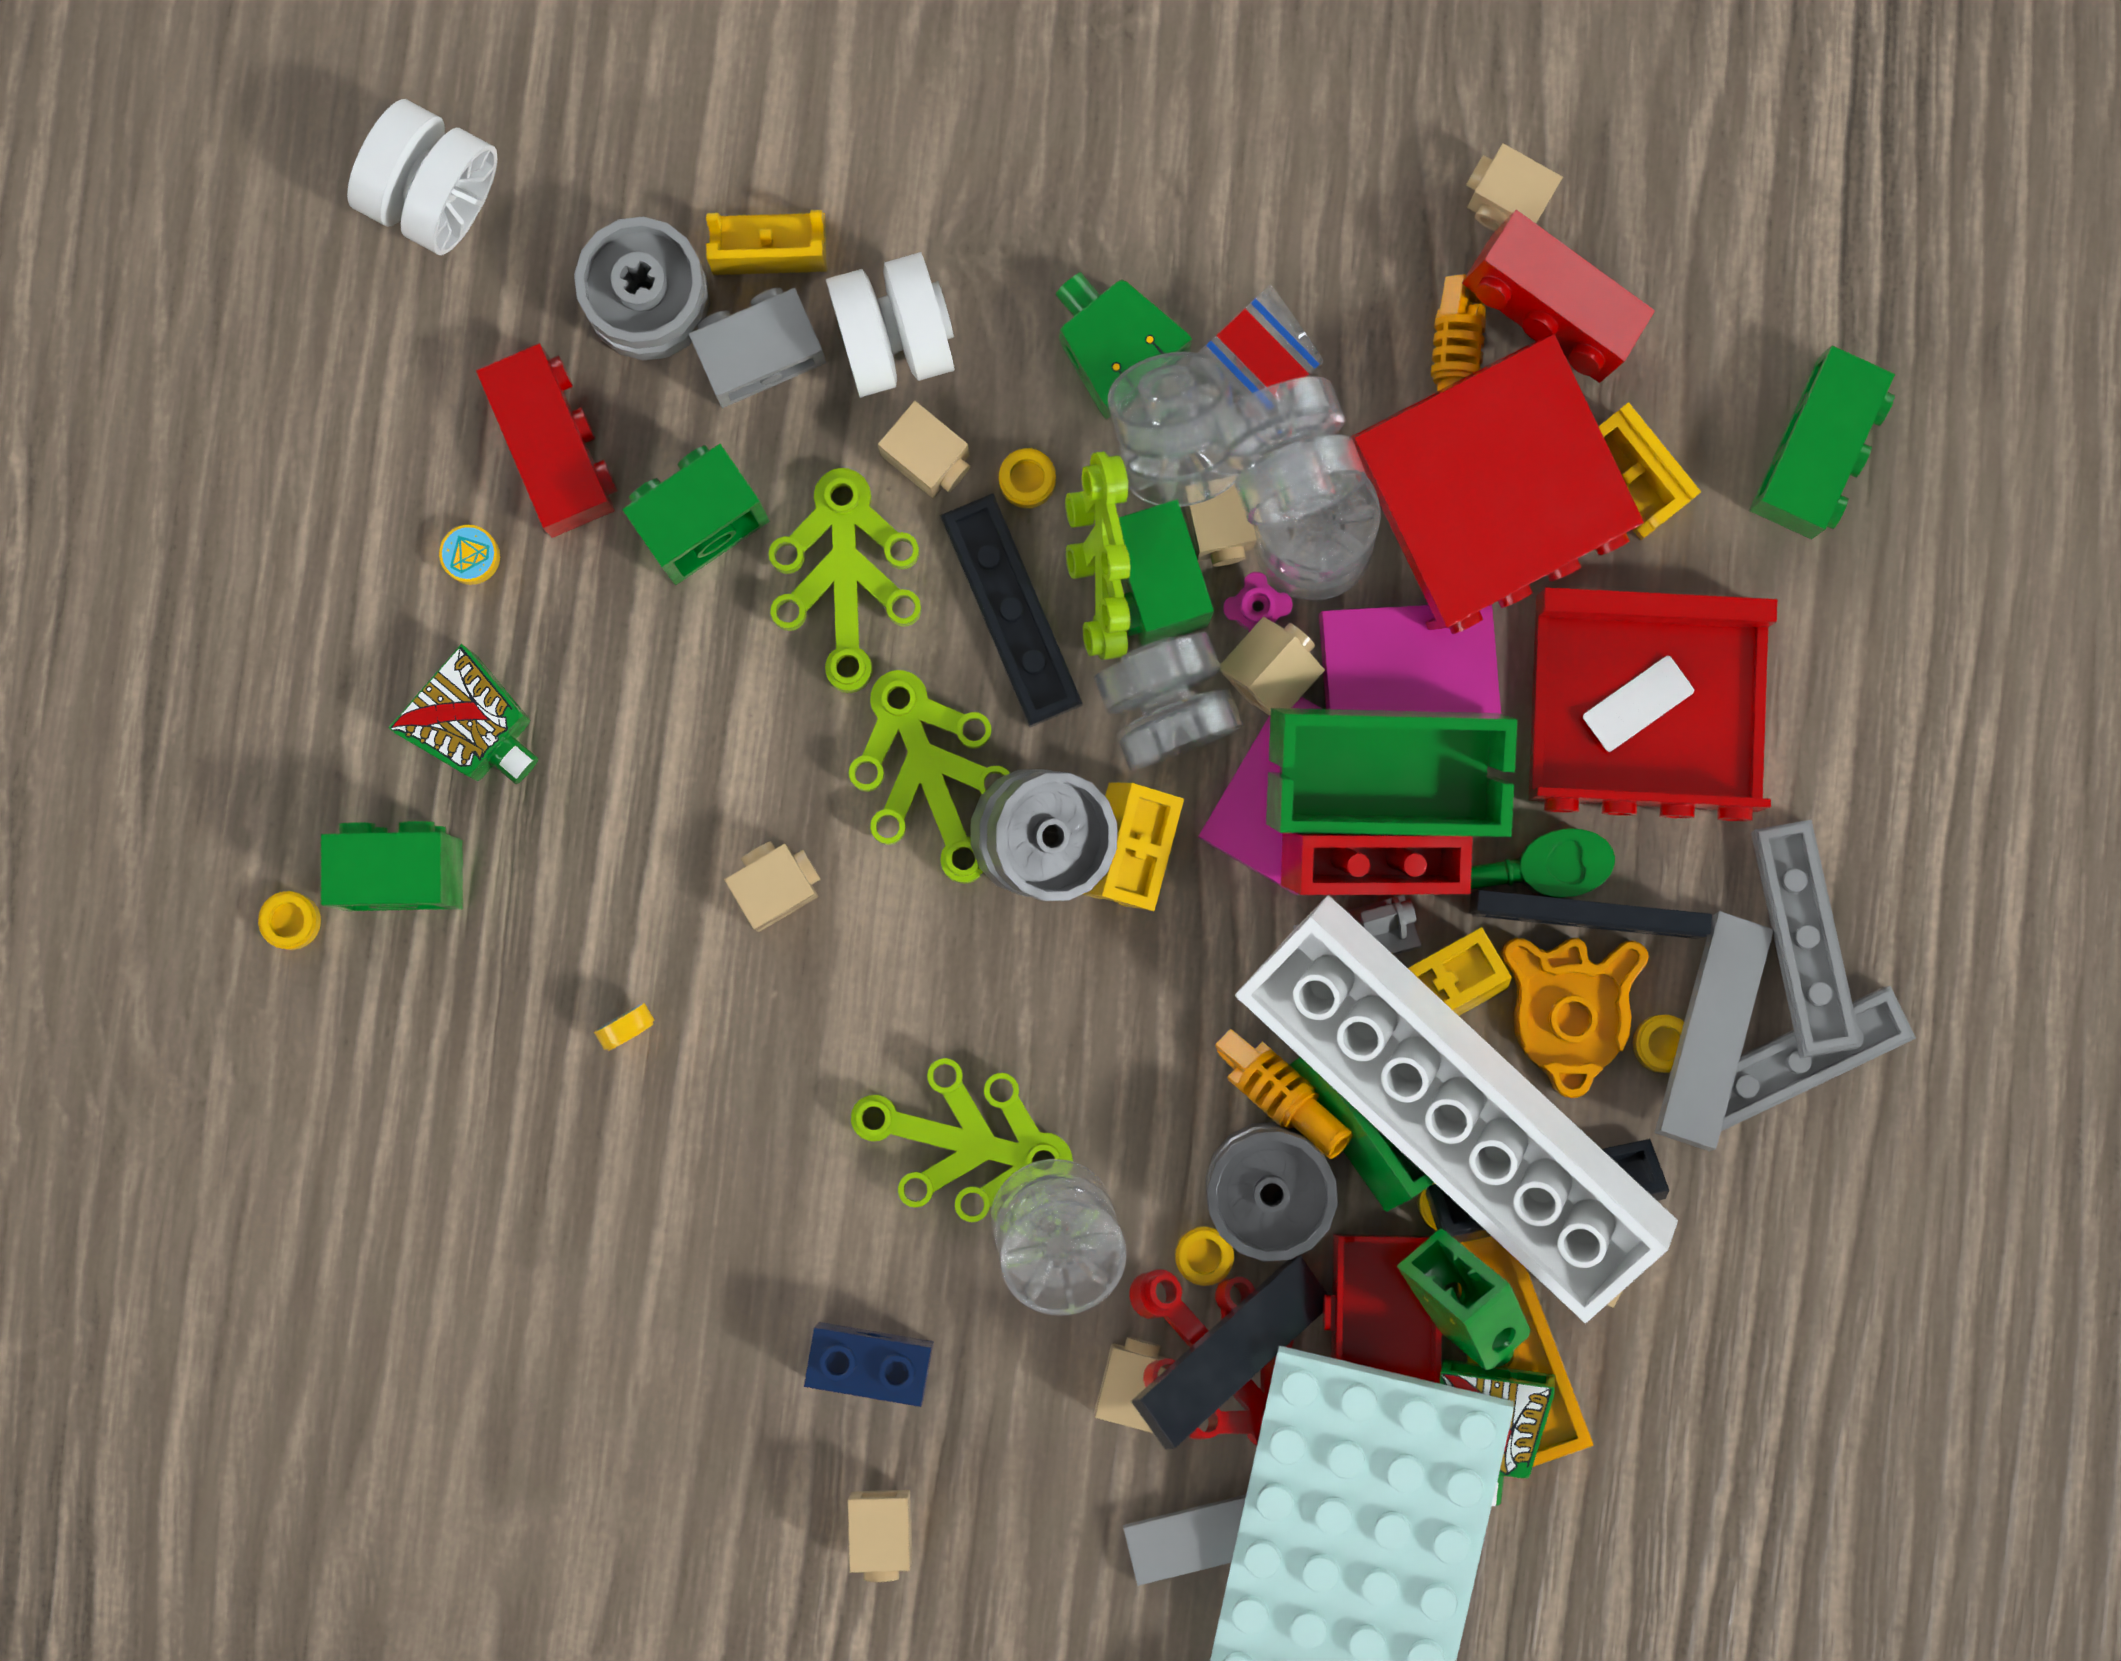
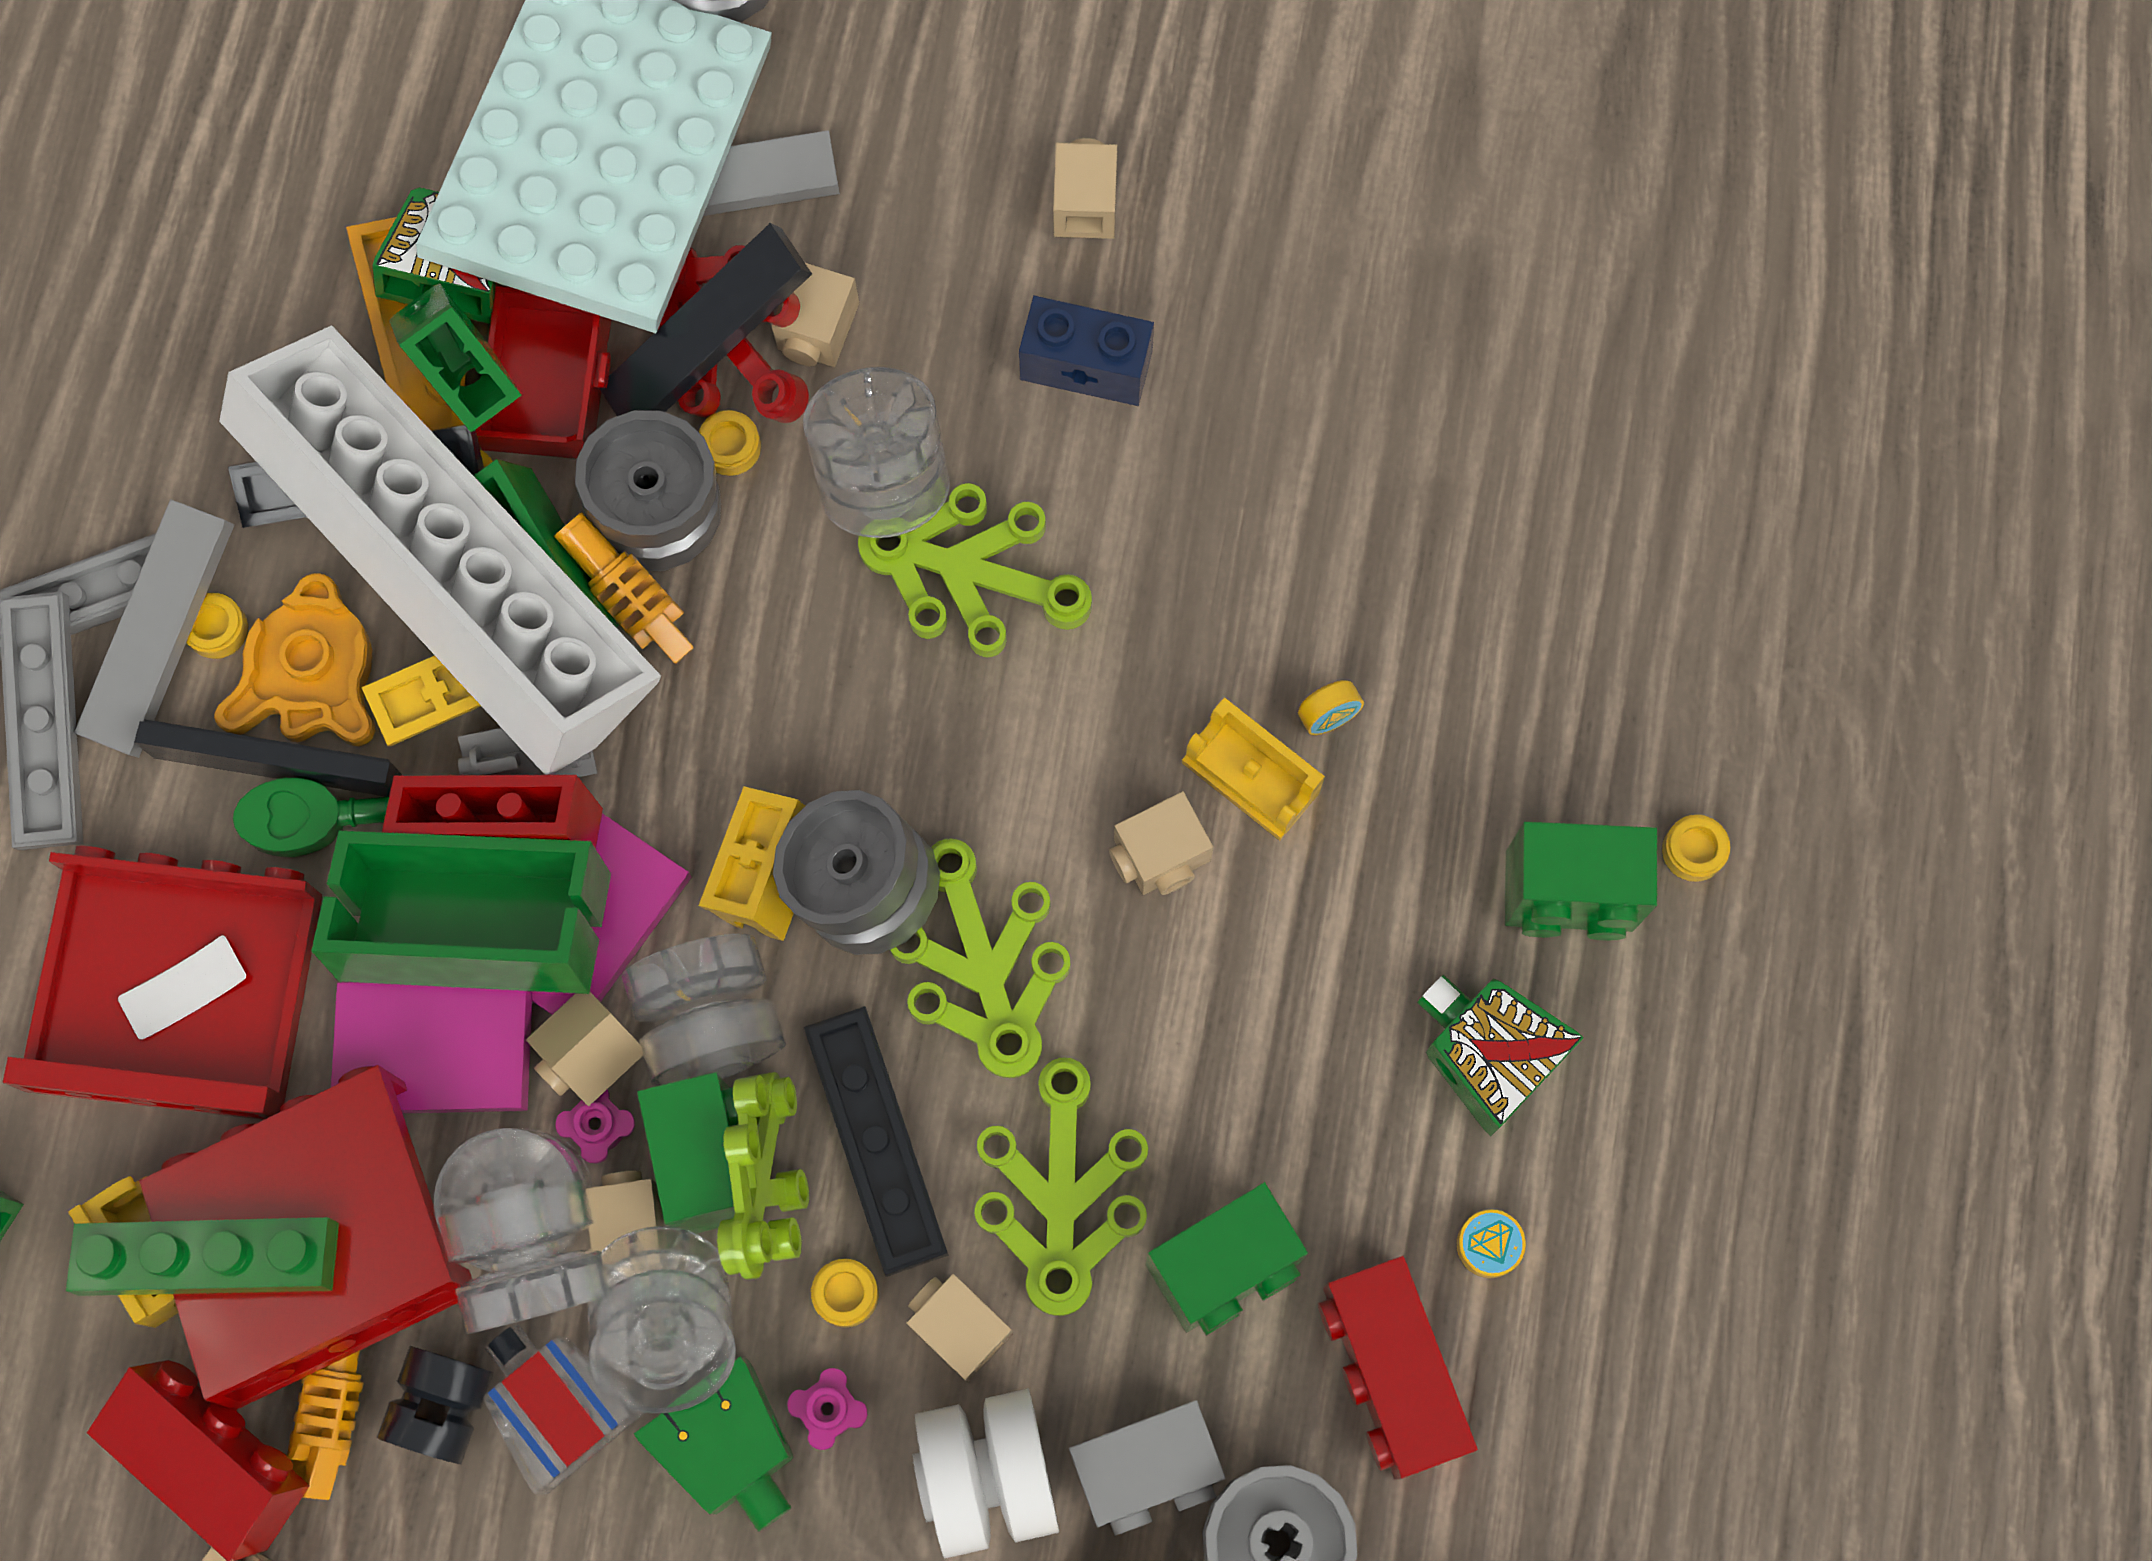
camera: 170 degrees left, 10 degrees down
(694, 962) = (1253, 769): none -> yellow hinge
(1033, 362) = (846, 1411): none -> dark pink plate
(1360, 375) = (441, 1381): none -> black wheel
(1574, 452) = (203, 1256): none -> green plate

